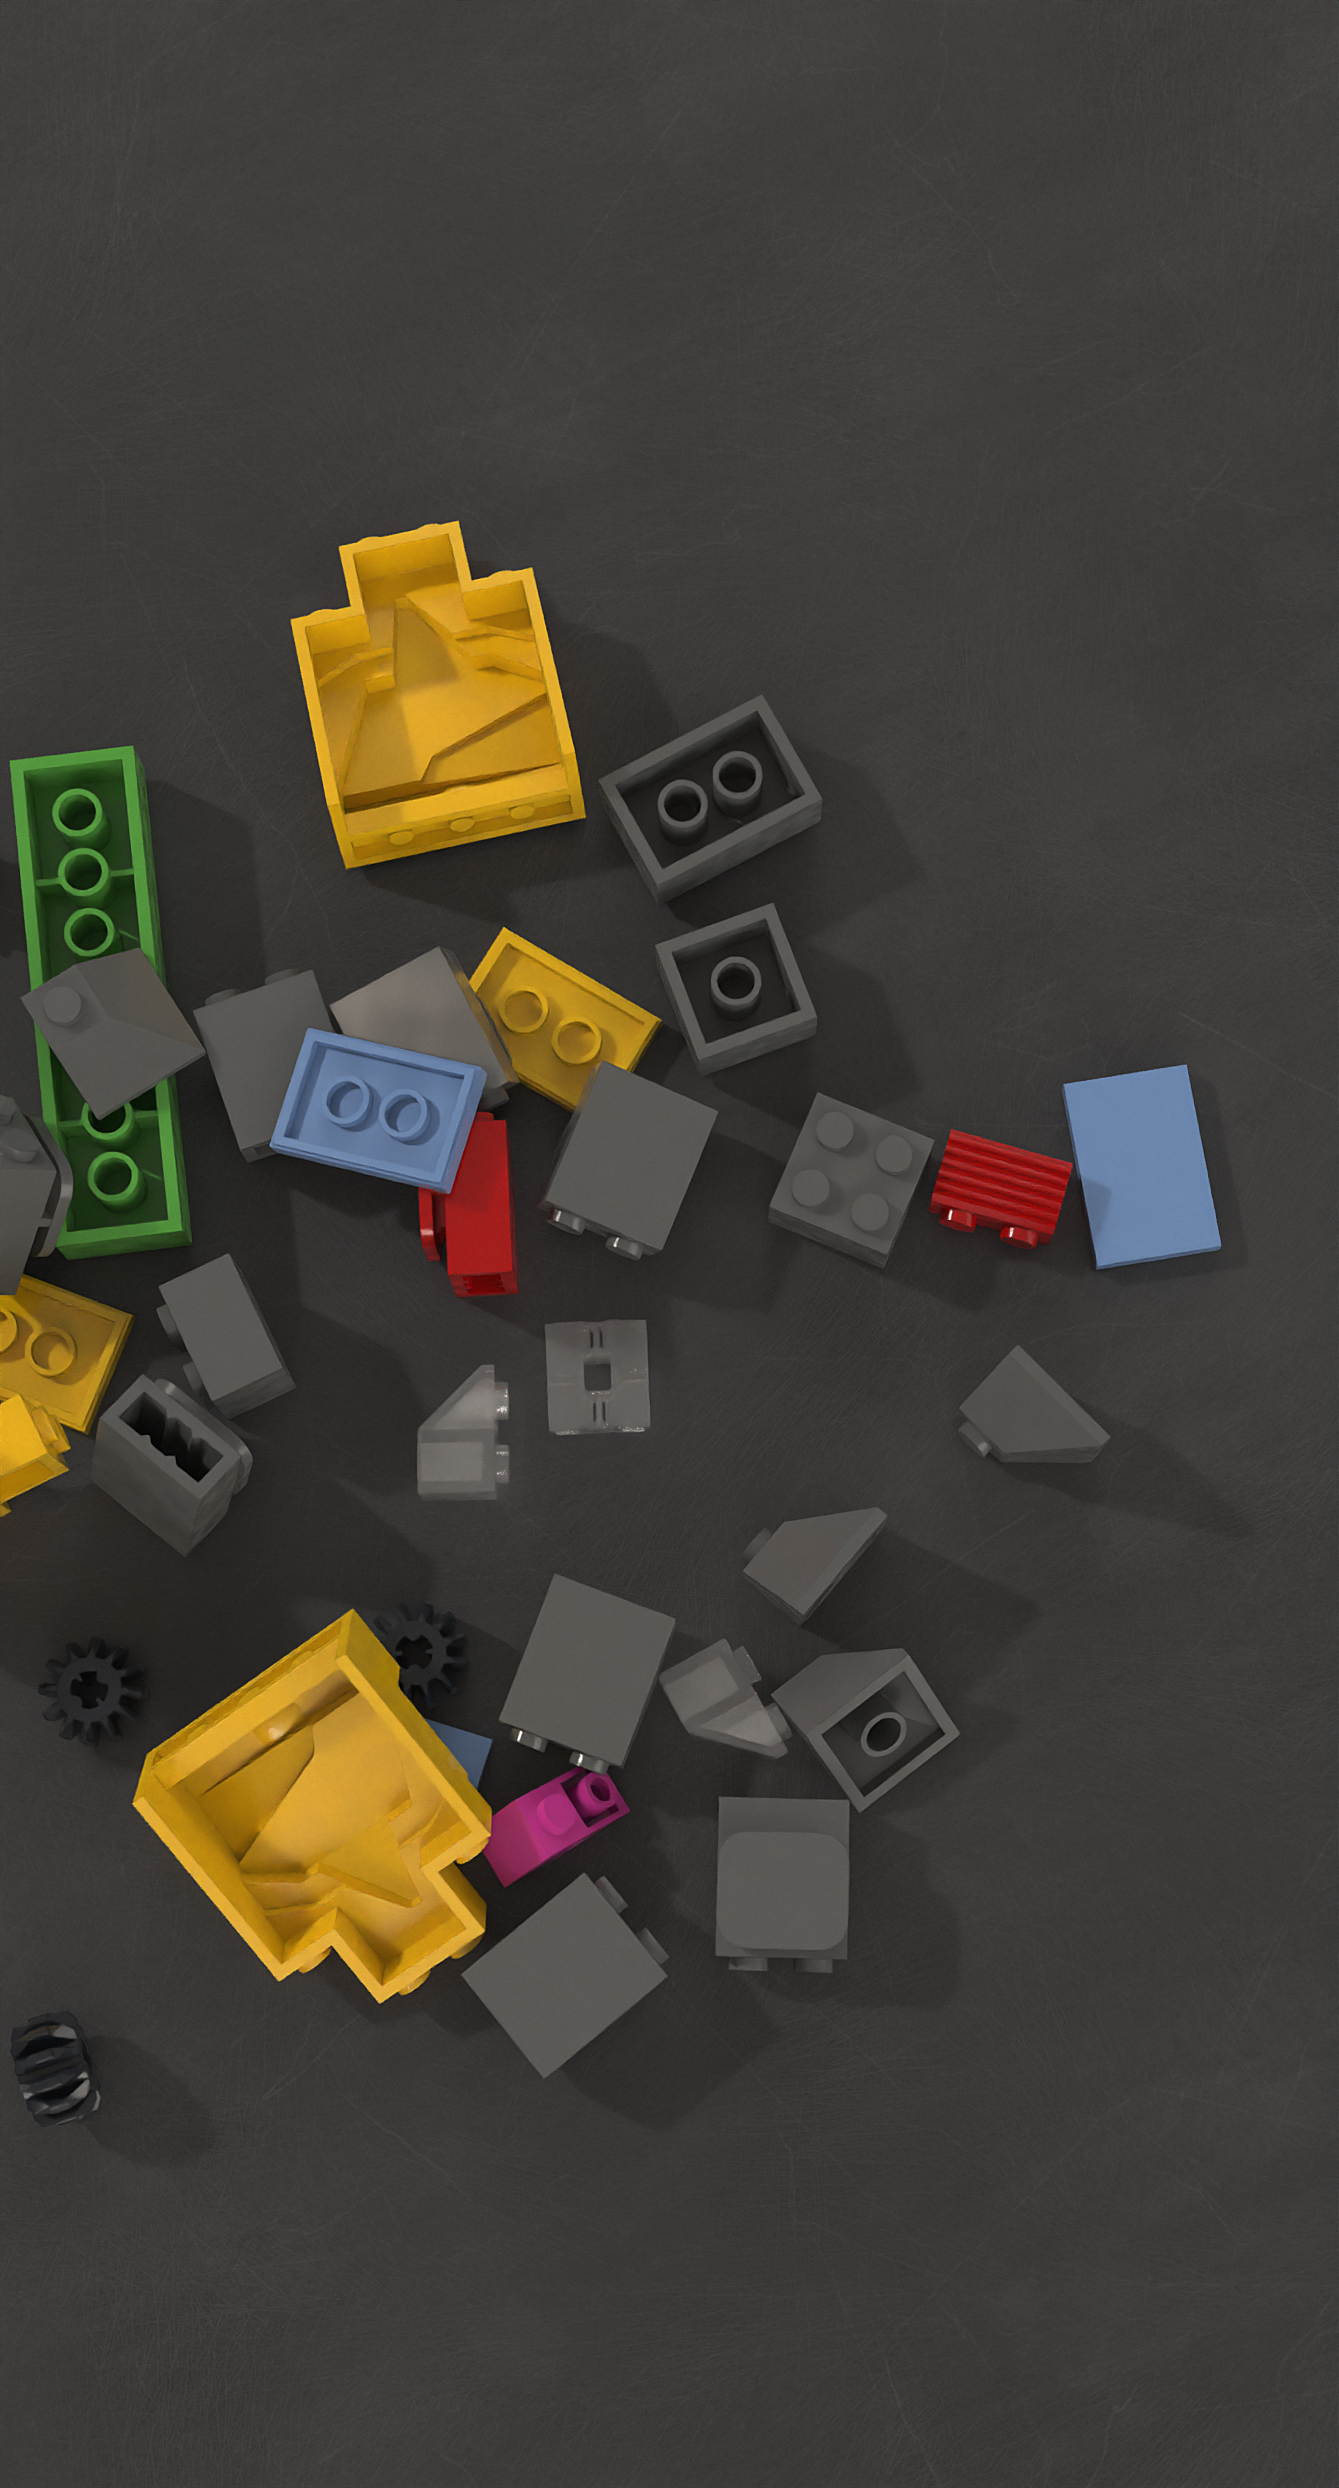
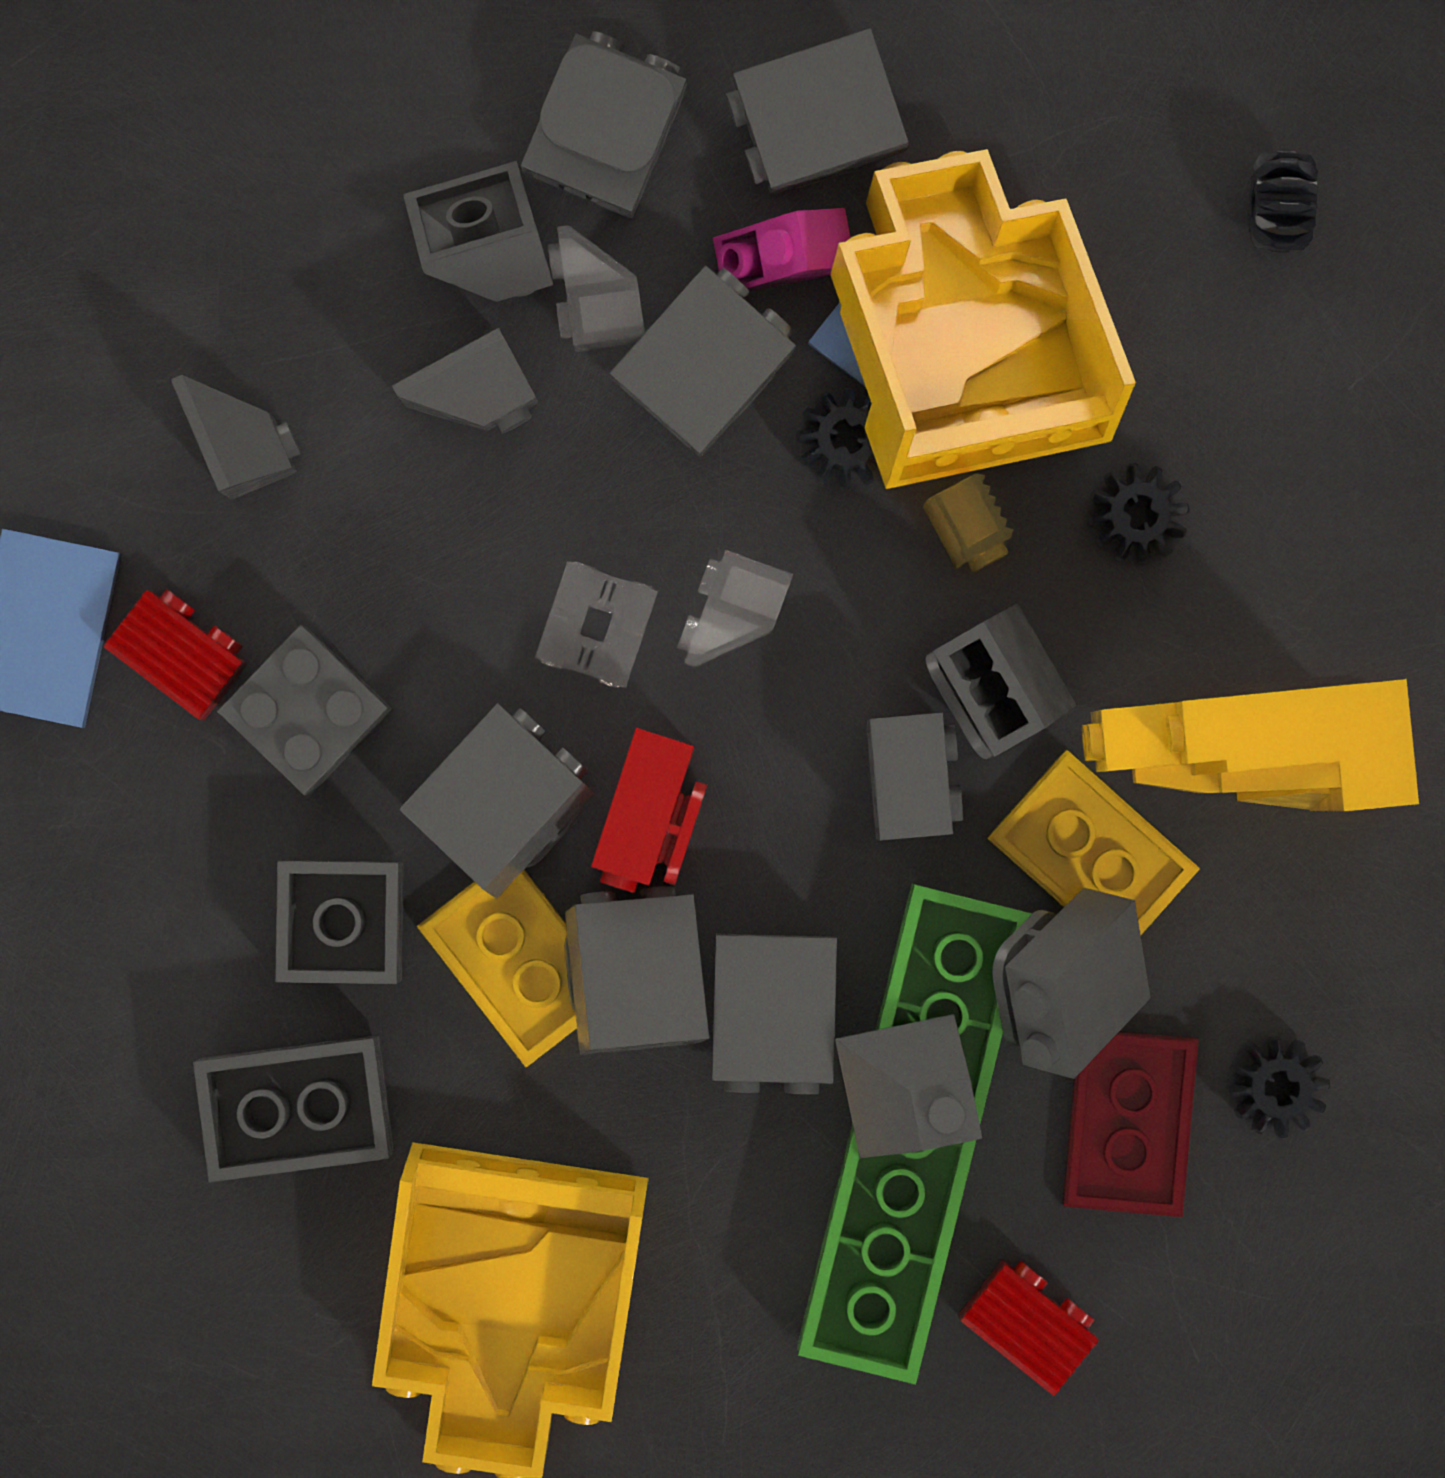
camera: 165 degrees left, 10 degrees up
(257, 1611) = (969, 523): none -> clear yellow brick
(378, 1110) = (700, 919): medium blue tile -> none

